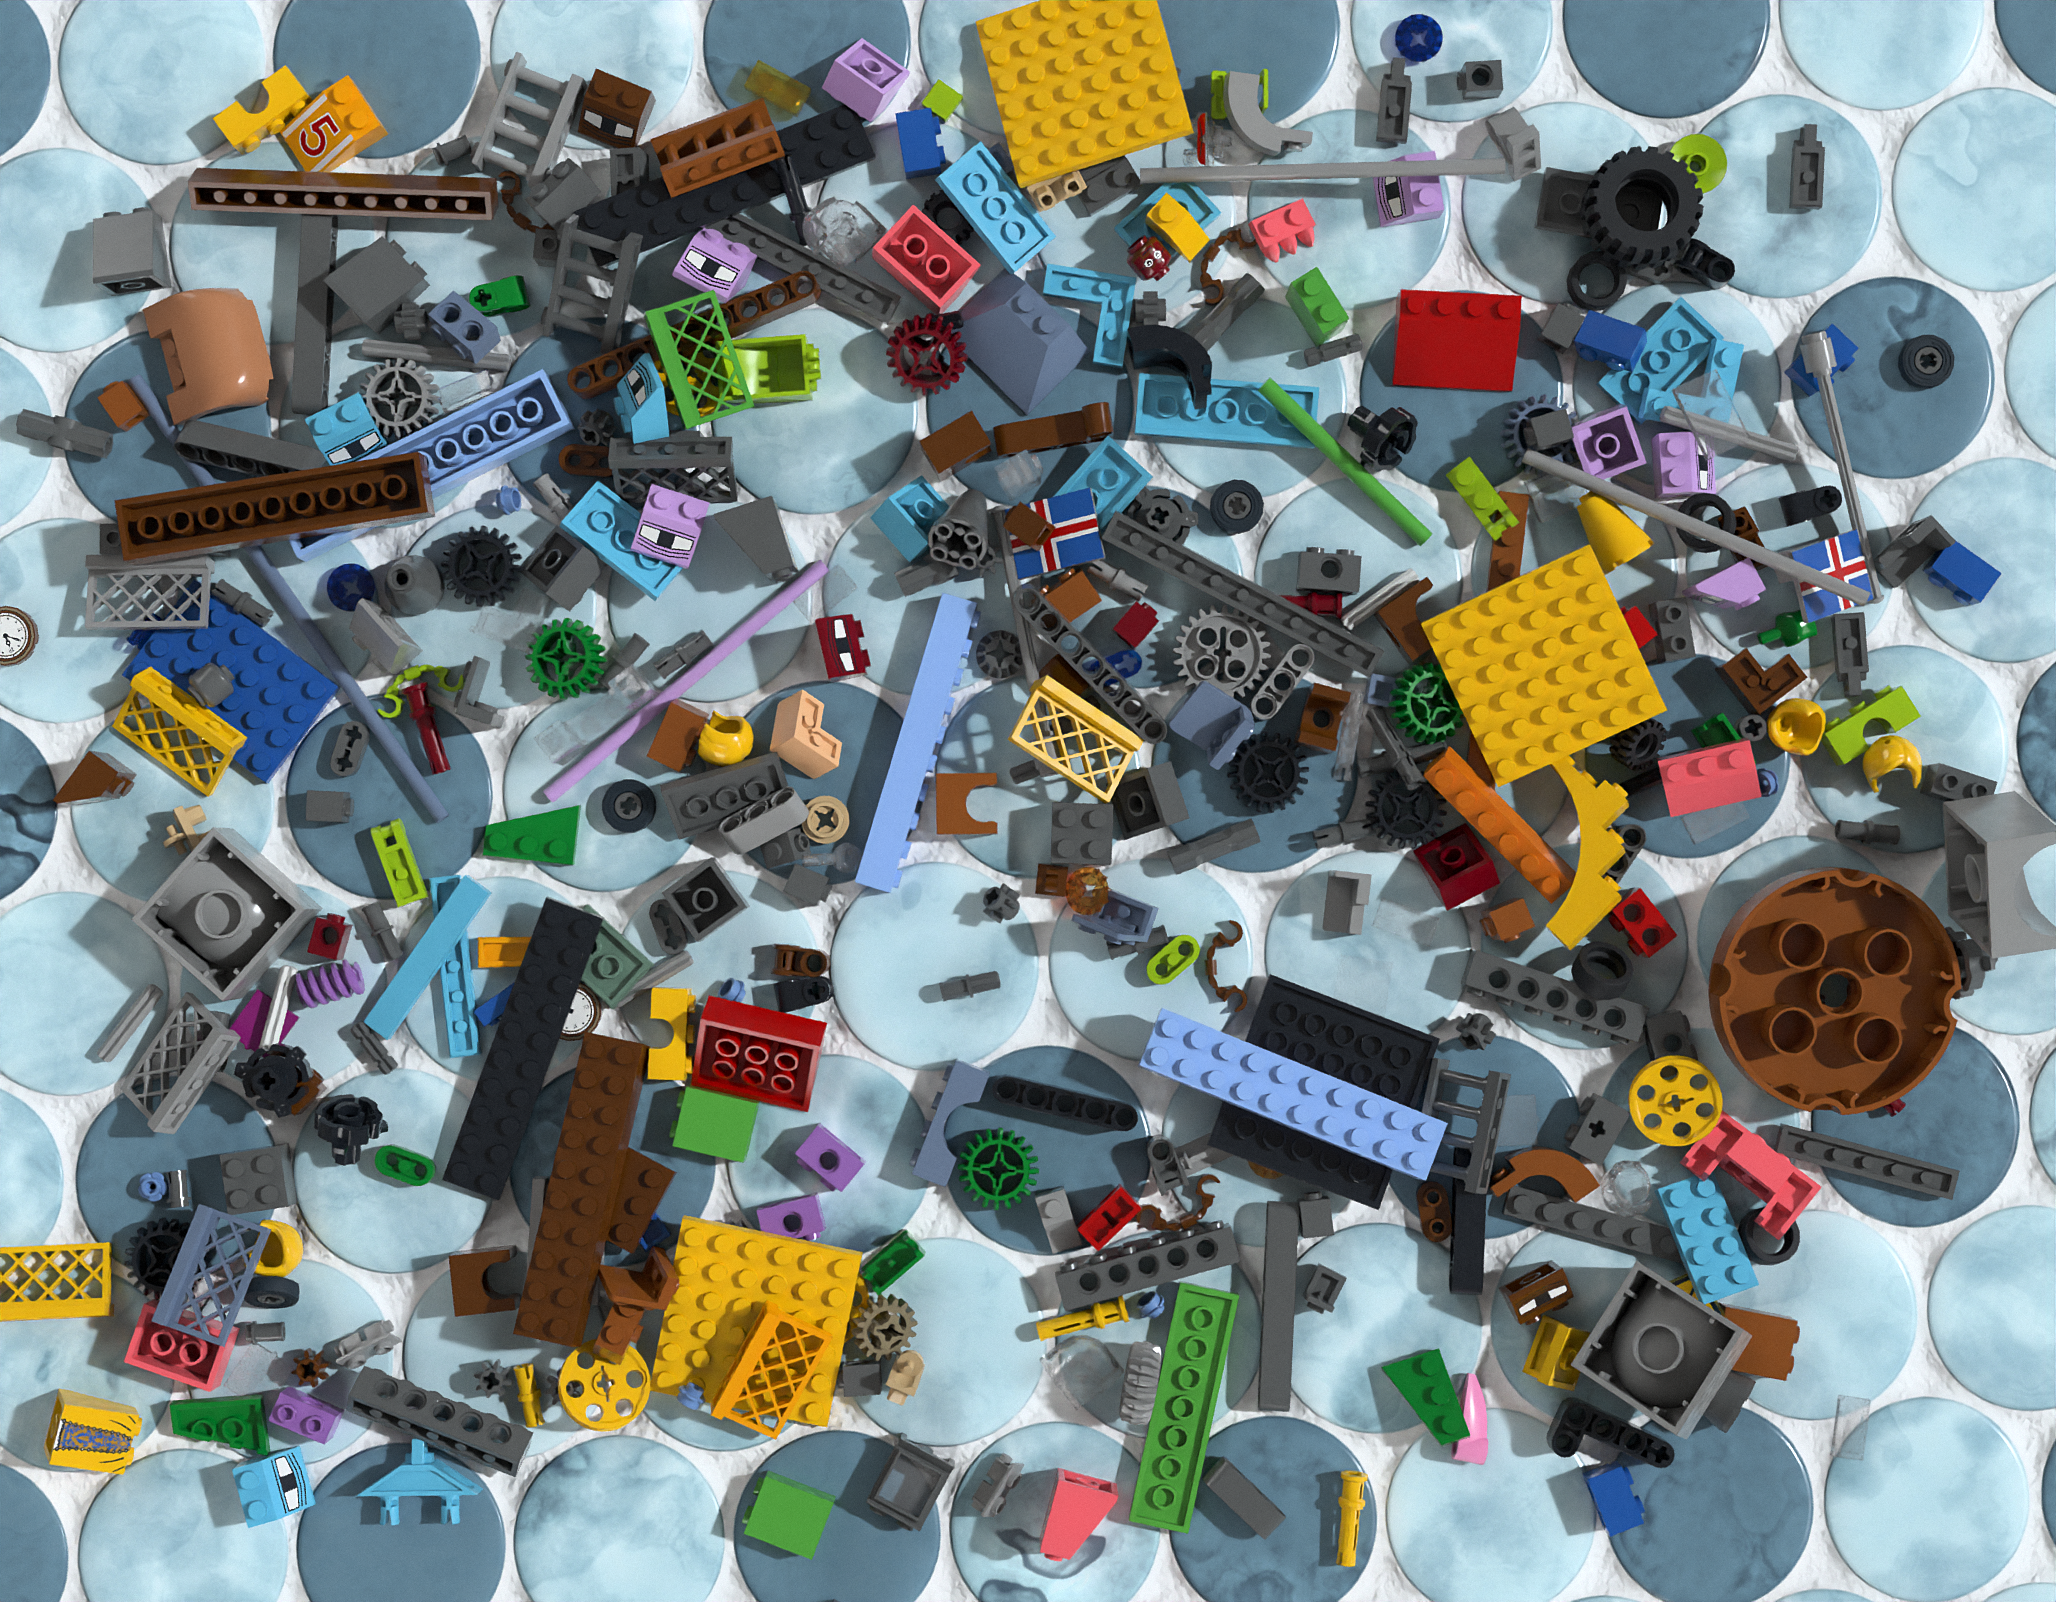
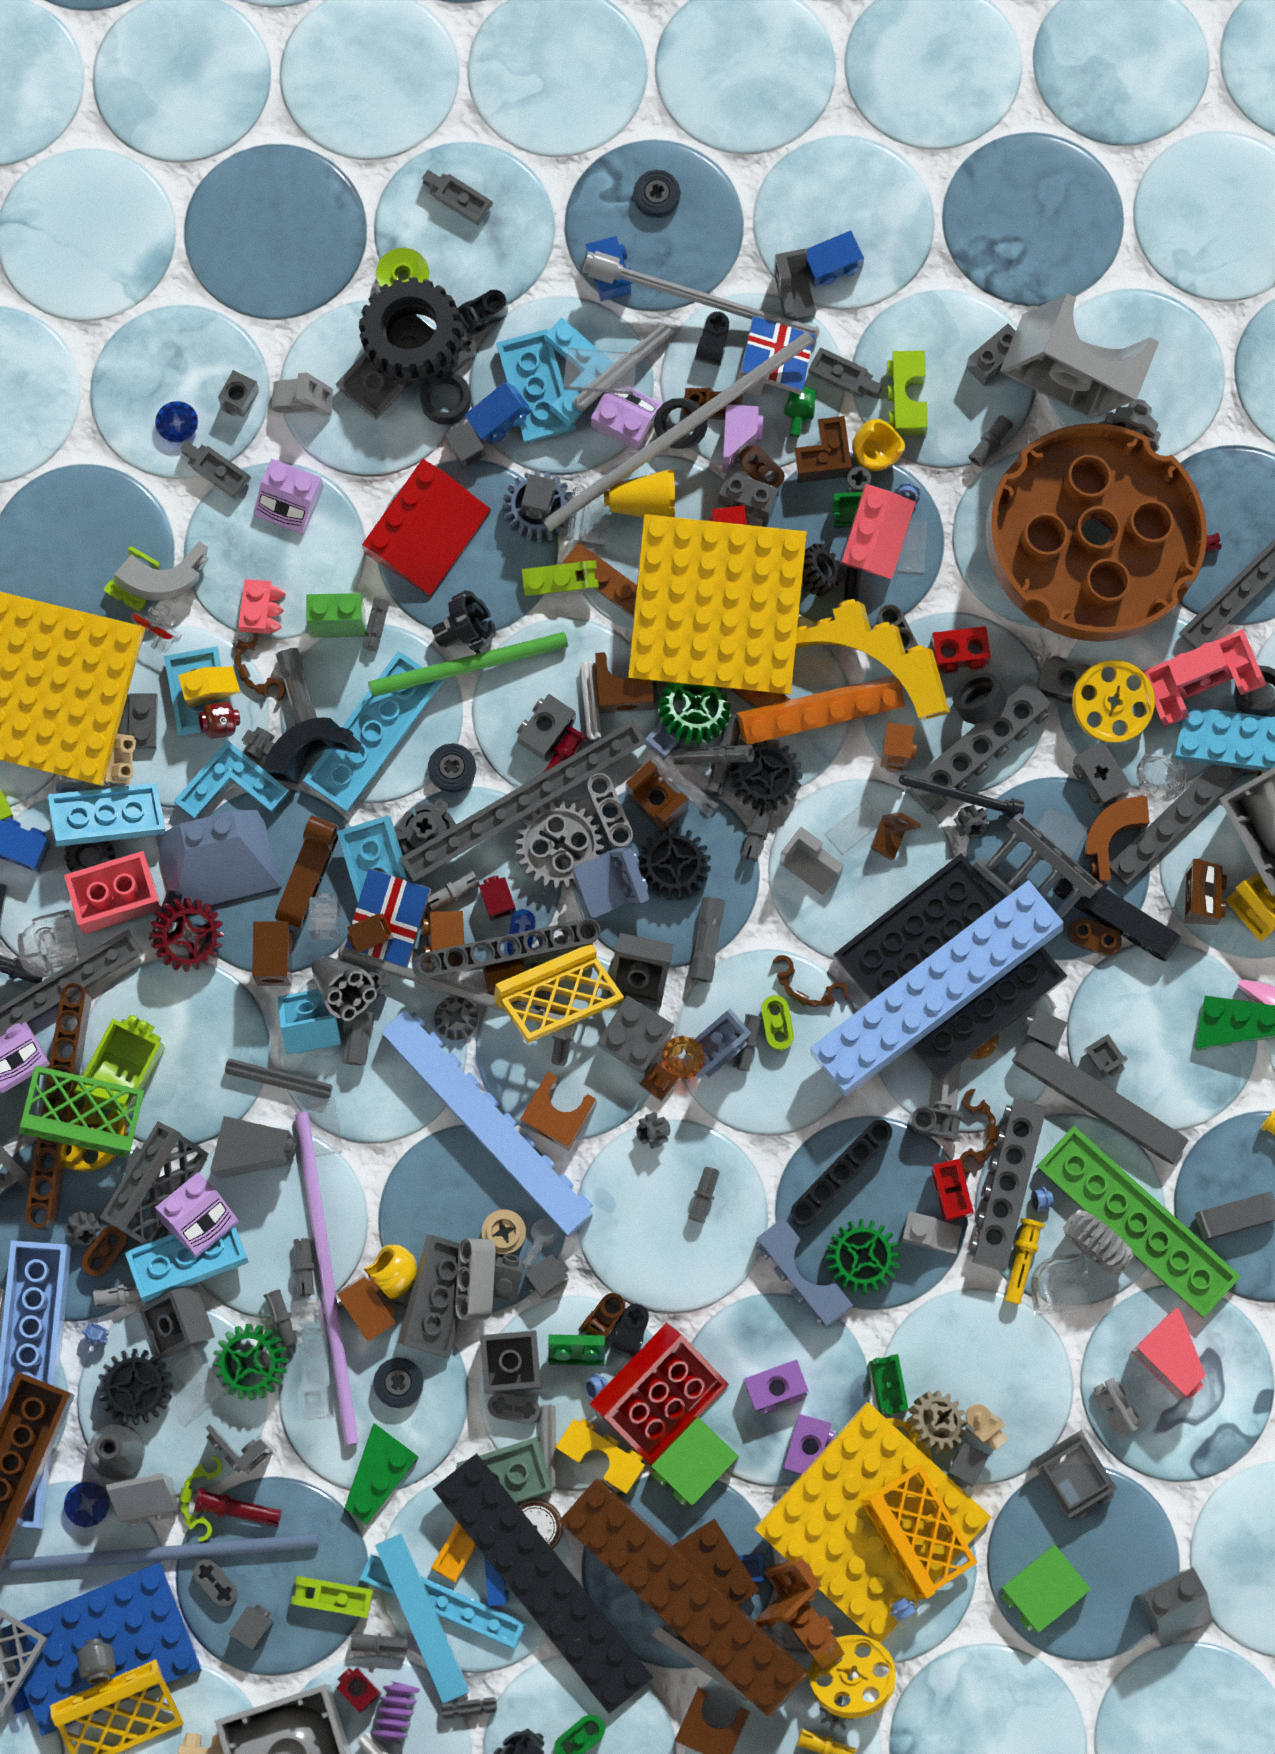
camera: 60 degrees left, 10 degrees down
(242, 603) = (44, 1600): dark grey pin -> none
(642, 402) = (86, 1174): medium azure slope -> none
(753, 953) = (576, 1350): none -> green plate
(800, 738) = (425, 1210): light nougat panel -> none
(842, 647) = (375, 1136): dark red slope -> none
(844, 523) = (278, 1078): none -> dark grey axle
(1323, 170) = (233, 551): light grey piece -> none
(1419, 960) = (891, 833): none -> reddish brown bracket
(1457, 866) = (834, 762): dark red slope -> none
(1510, 1061) = (1009, 808): none -> black piece
(1607, 443) = (575, 459): lavender slope -> none
(1709, 625) = (760, 466): none -> reddish brown plate
(1891, 753) = (940, 390): yellow piece -> none

